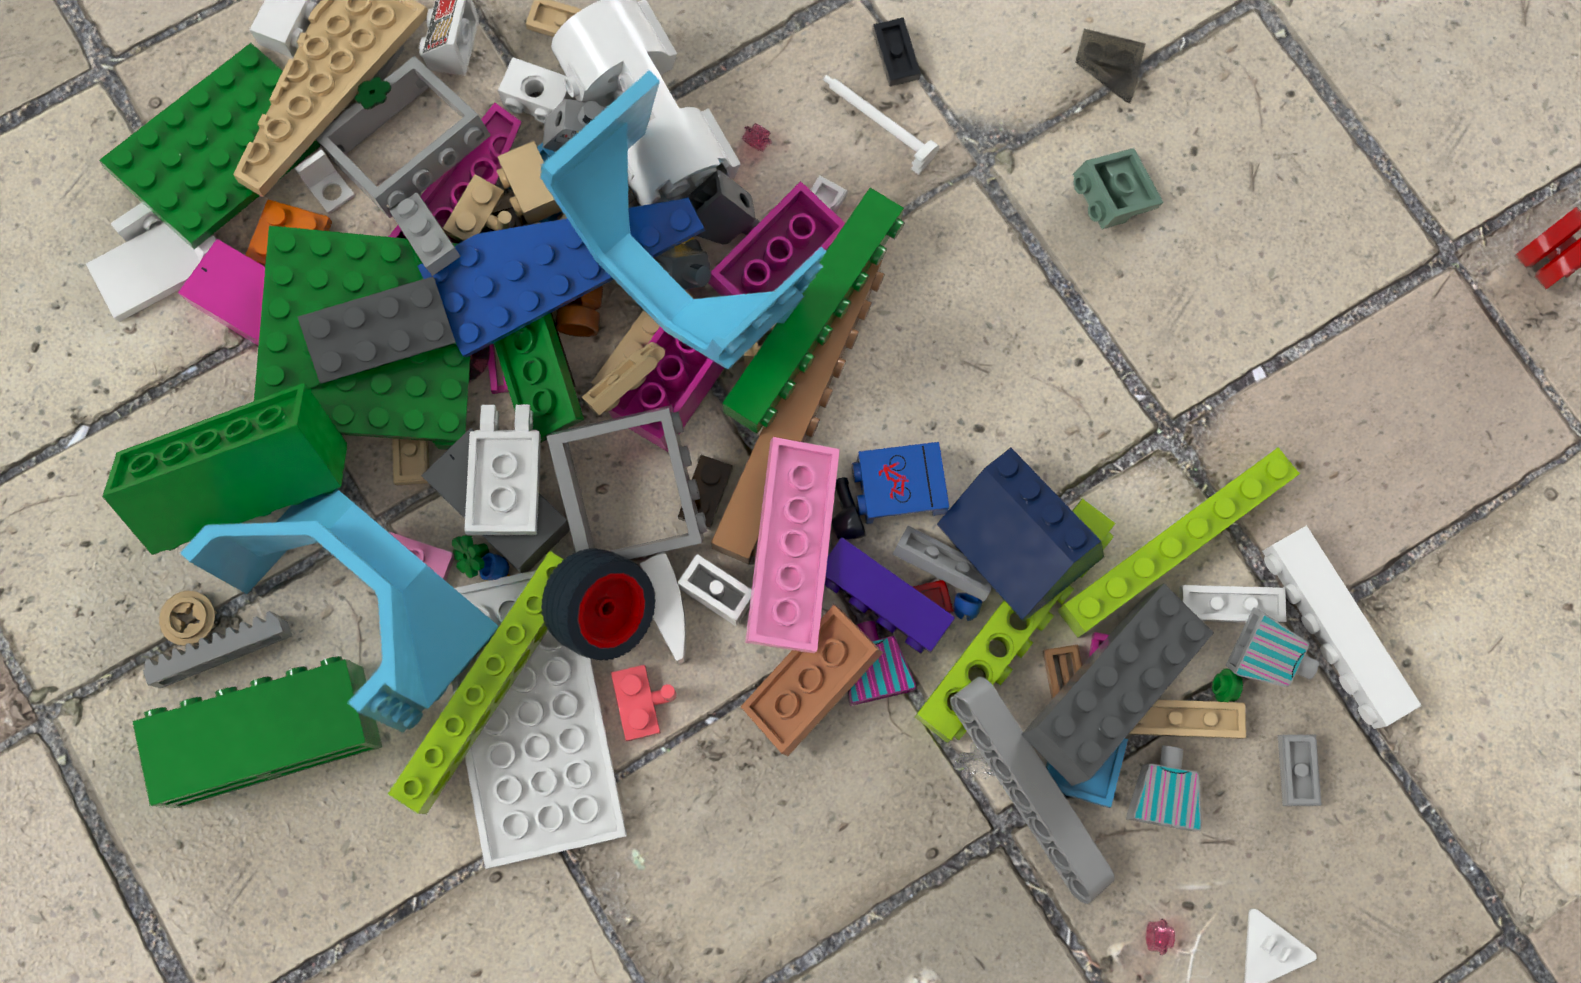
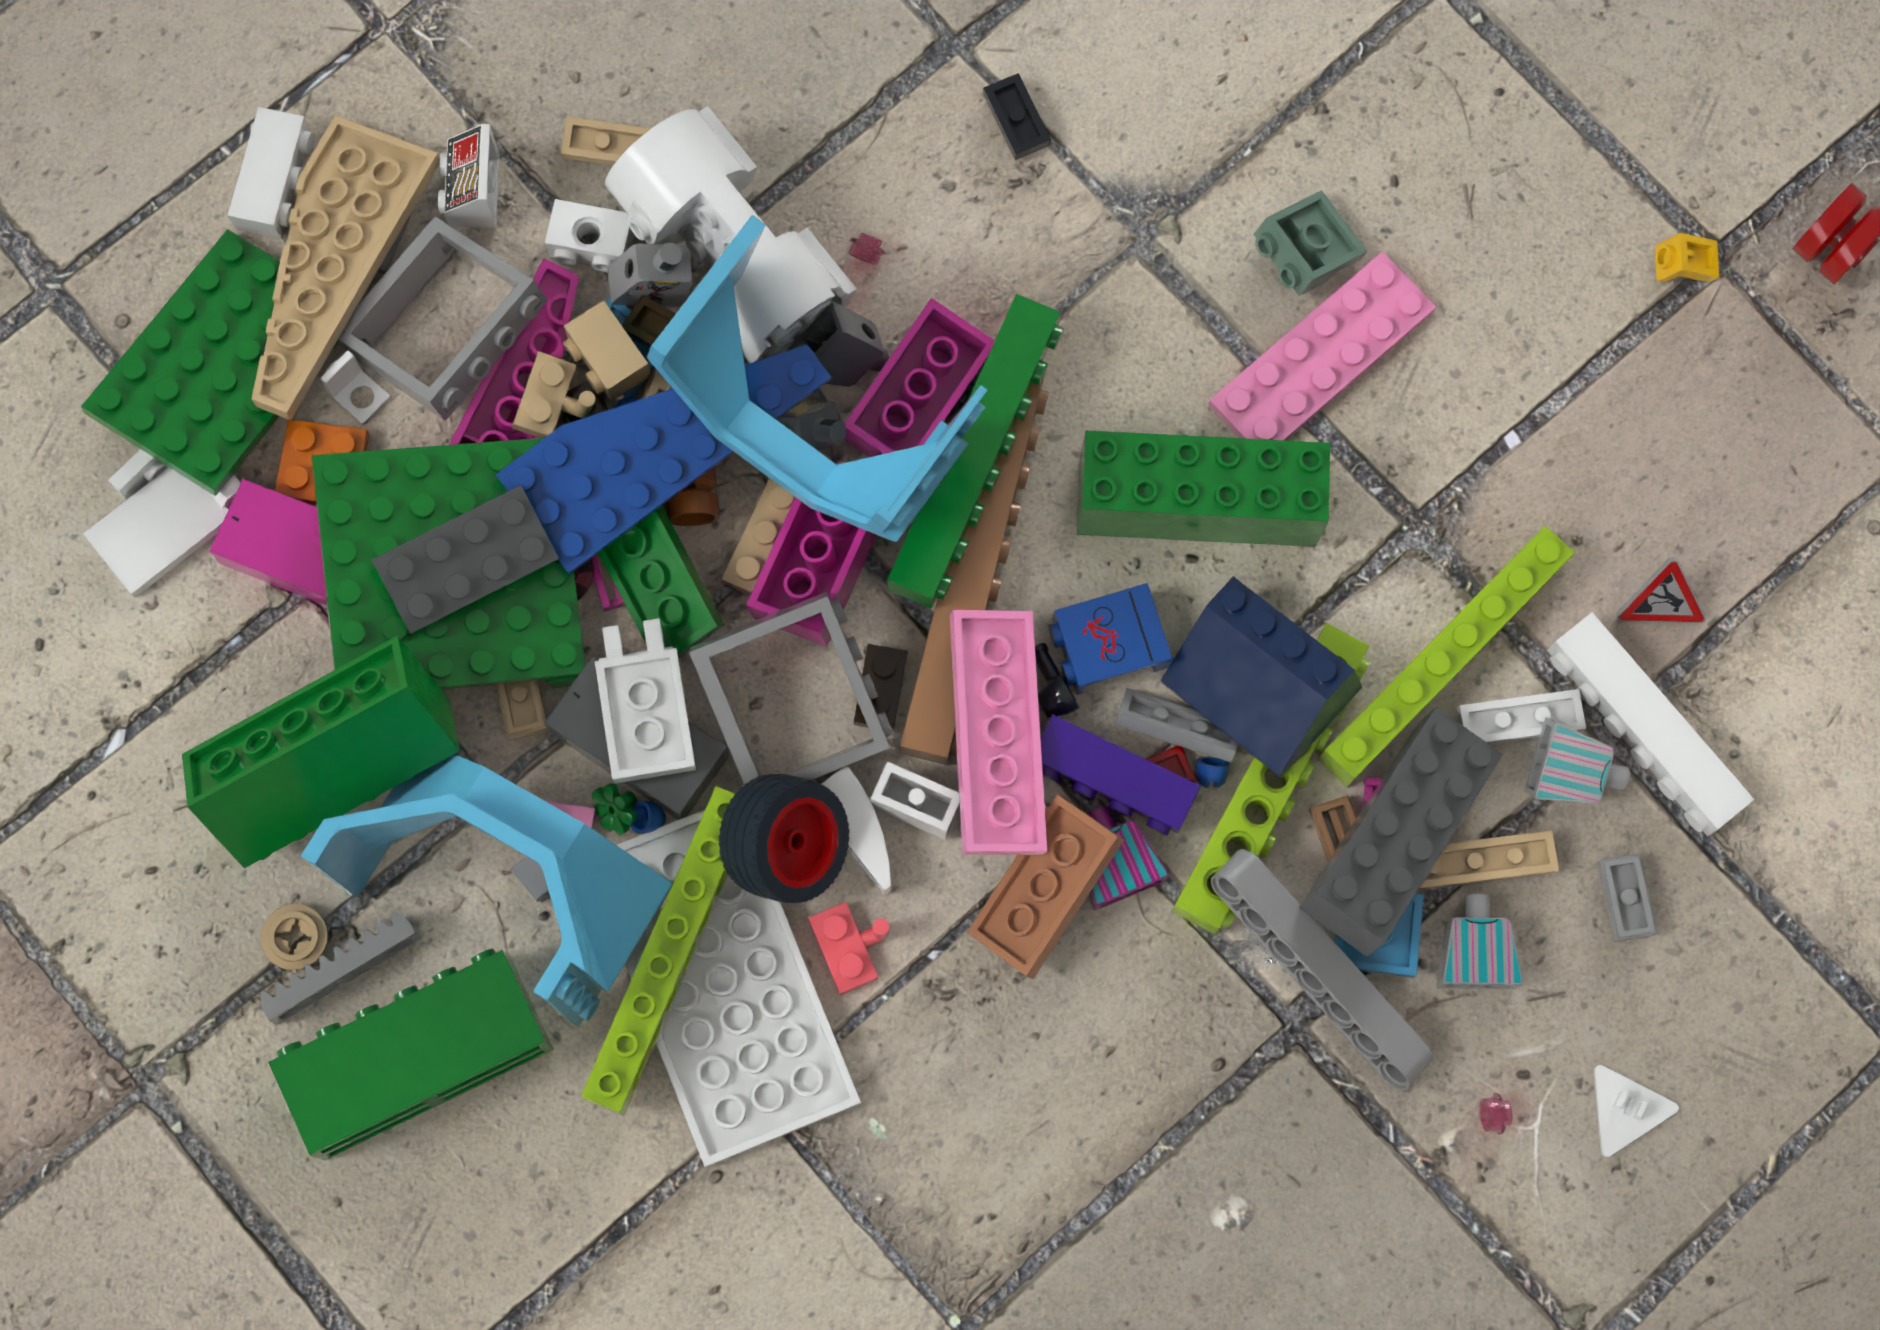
camera: 10 degrees left, 0 degrees up
(372, 93) = (396, 271): dark green plant -> none
(424, 233) = (497, 434): light grey plate -> none
(625, 377) = (764, 568): tan hinge -> none
(829, 193) = (964, 303): white tile -> none
(925, 152) = (1071, 235): white piece -> none
(999, 371) = (1203, 488): none -> green brick
(1111, 61) = (1278, 87): clear smoke wing -> none
(1112, 281) = (1323, 353): none -> bright pink plate
(1227, 686) = (1529, 814): green plate -> none
(1367, 524) = (1664, 598): none -> piece
(1427, 248) = (1687, 257): none -> yellow bracket

